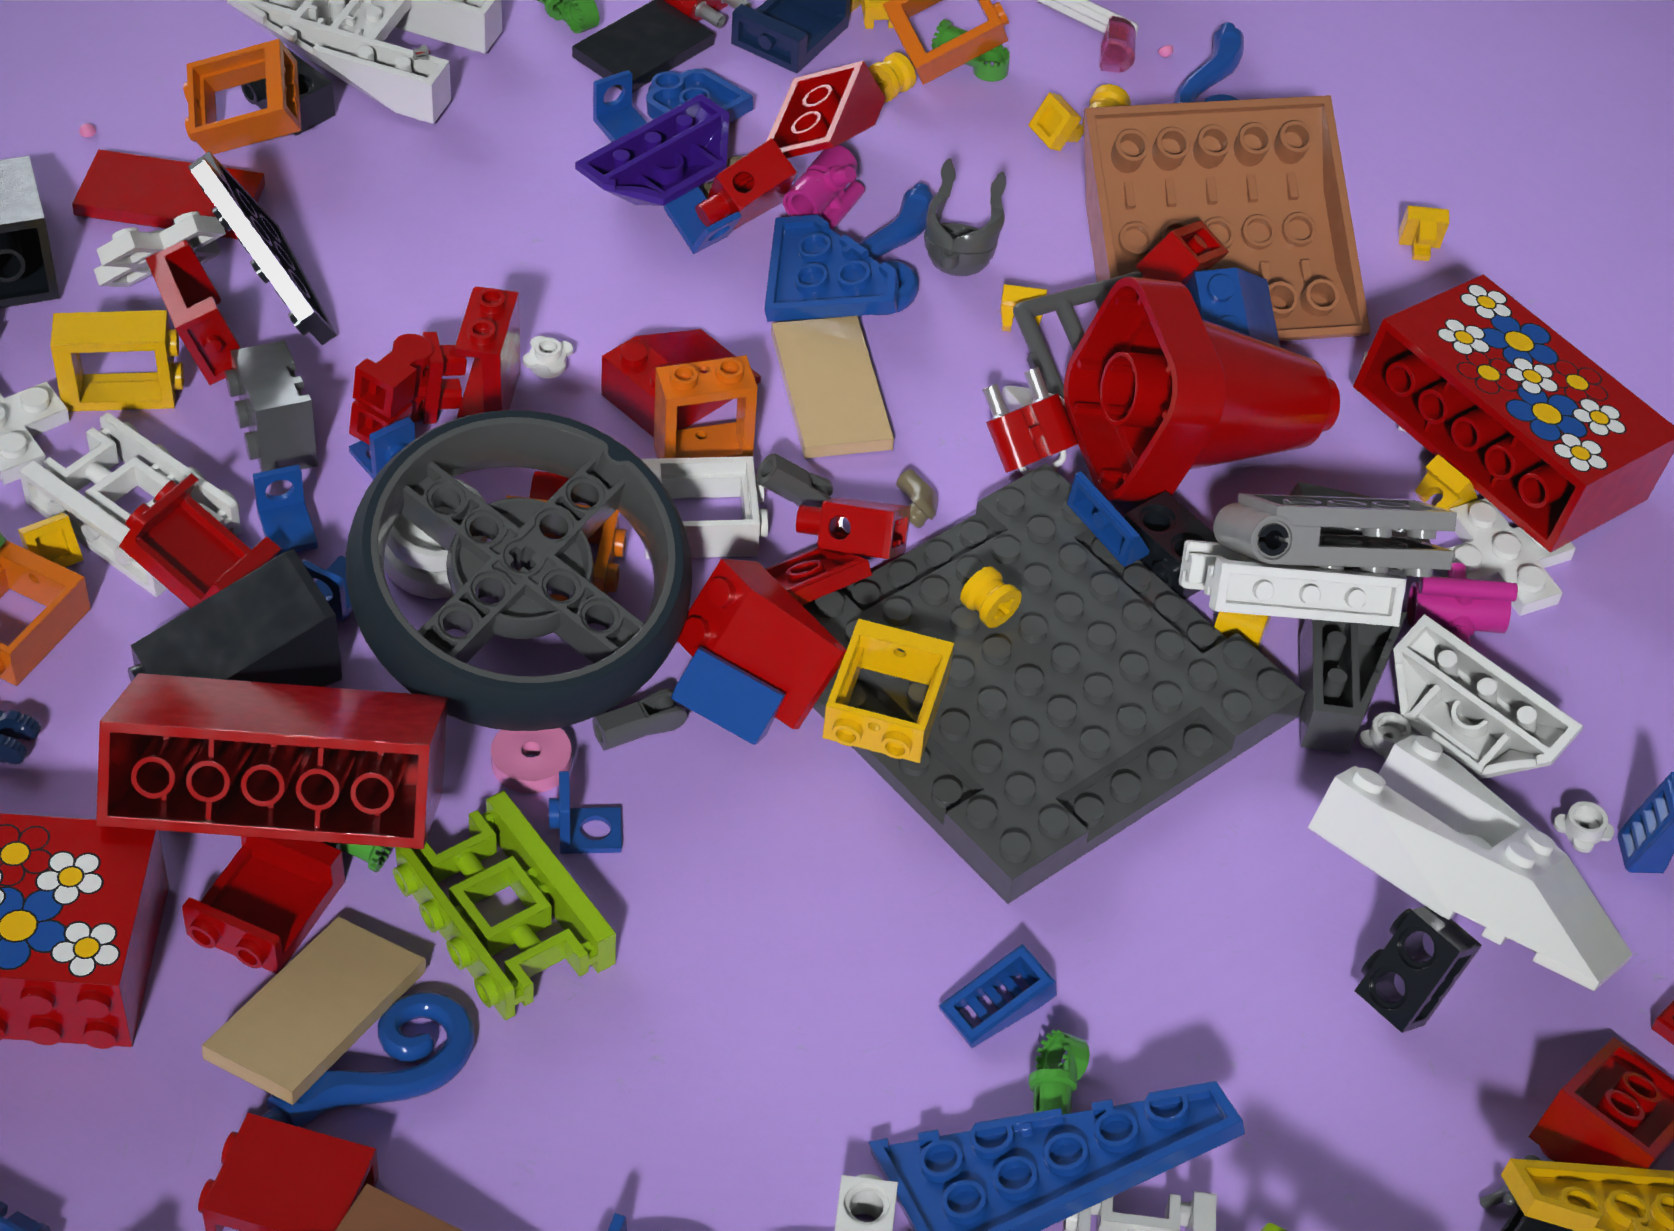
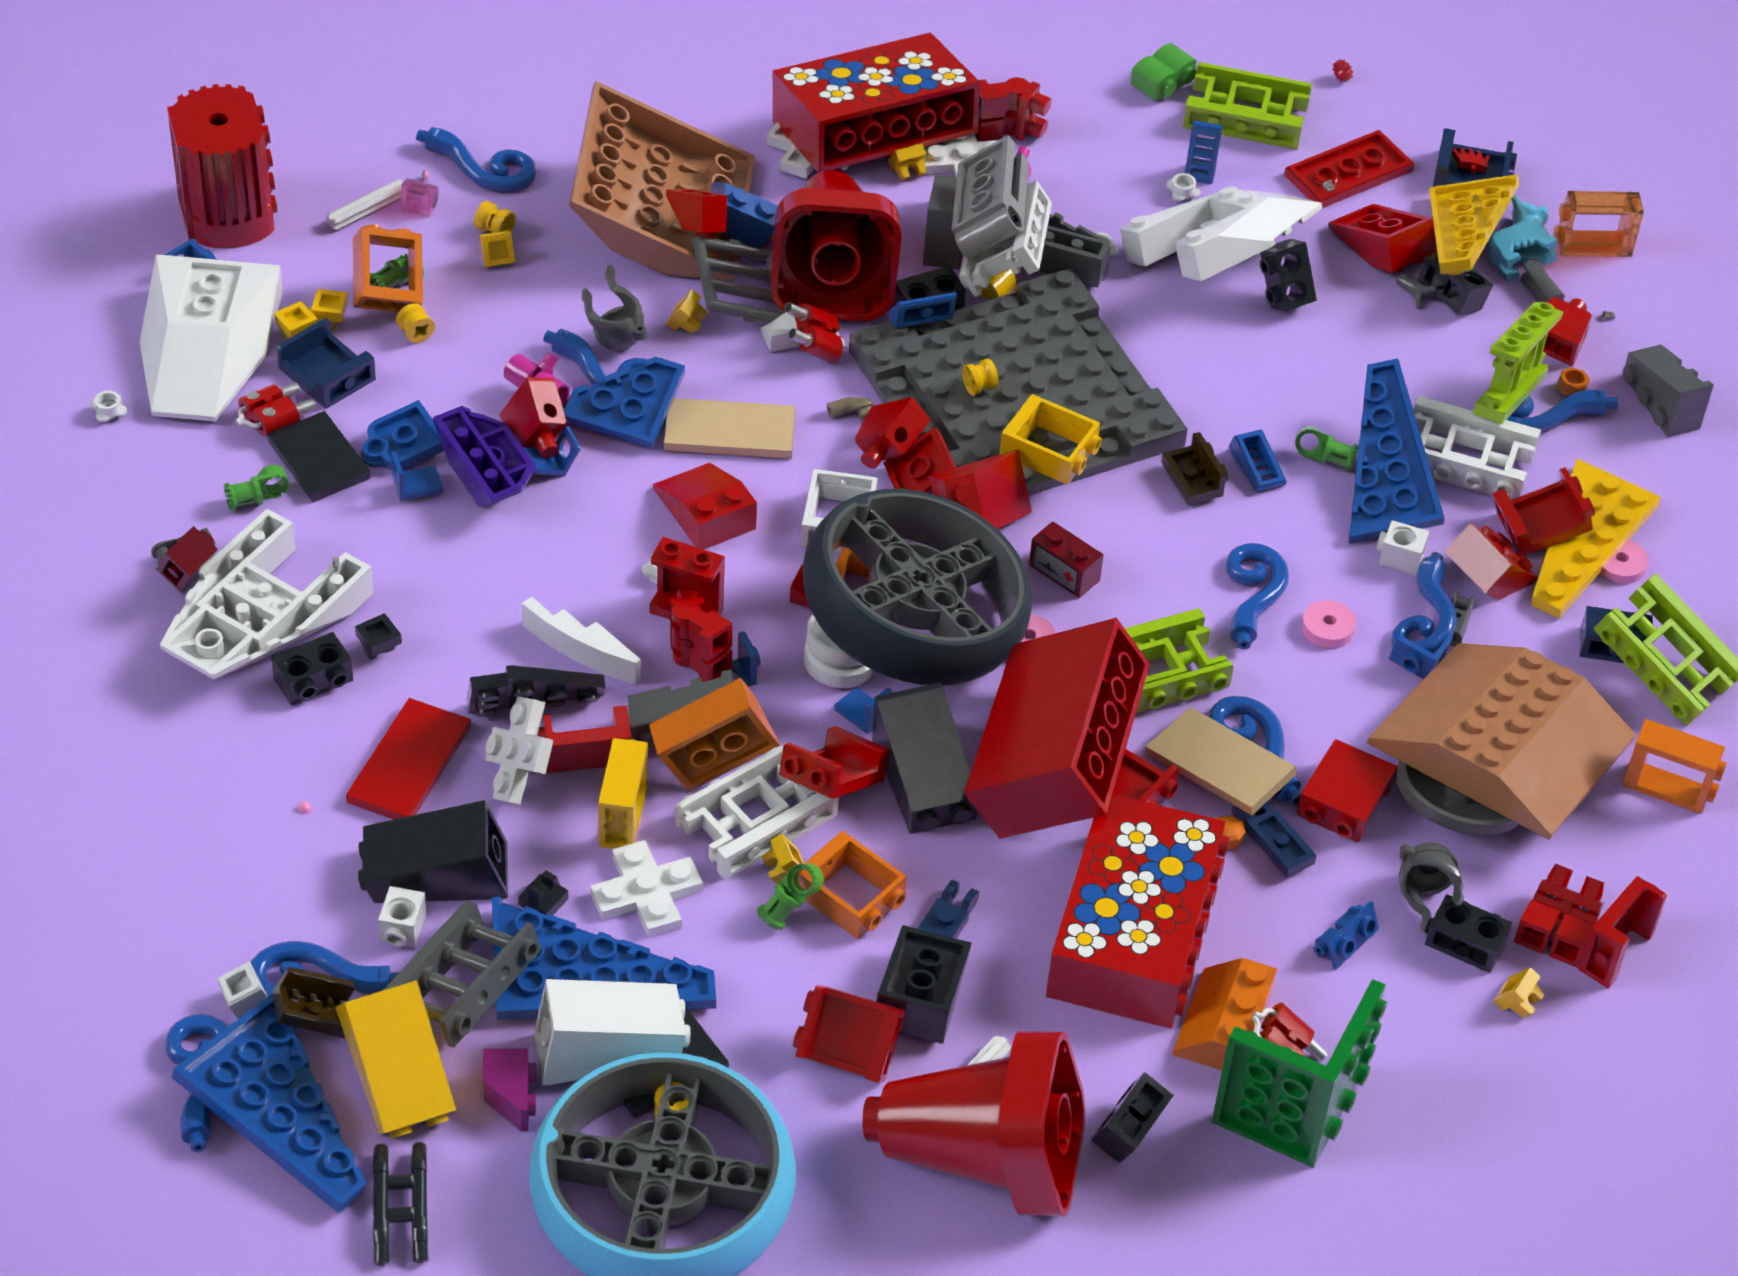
camera: 75 degrees left, 0 degrees up
(175, 1111) = (1277, 839): none -> dark blue hinge
(183, 1043) = (1235, 830): none -> orange tile
(207, 409) = (713, 735): none -> orange slope
(236, 68) = (348, 652): orange window -> none
(284, 516) = (798, 730): blue bracket -> none
(349, 128) = (378, 635): none -> black tile
(385, 305) = (586, 645): none -> white slope
(572, 819) = (1091, 613): blue bracket -> none
(645, 1016) = (1244, 621): none -> blue plant
(669, 1160) = (1326, 612): none -> bright pink piece
(685, 767) = (1066, 559): none -> dark red brick
(688, 386) = (775, 482): orange window -> none
(728, 696) = (1019, 523): blue slope -> none
(793, 482) = (835, 458): dark grey bar -> none
(827, 109) = (477, 360): red slope -> none
(933, 909) = (1196, 471): none -> dark brown bracket
(1423, 230) = (672, 99): yellow tile -> none
(1474, 706) = (1105, 196): white wedge -> none
(1606, 568) = (1011, 110): none -> red hips

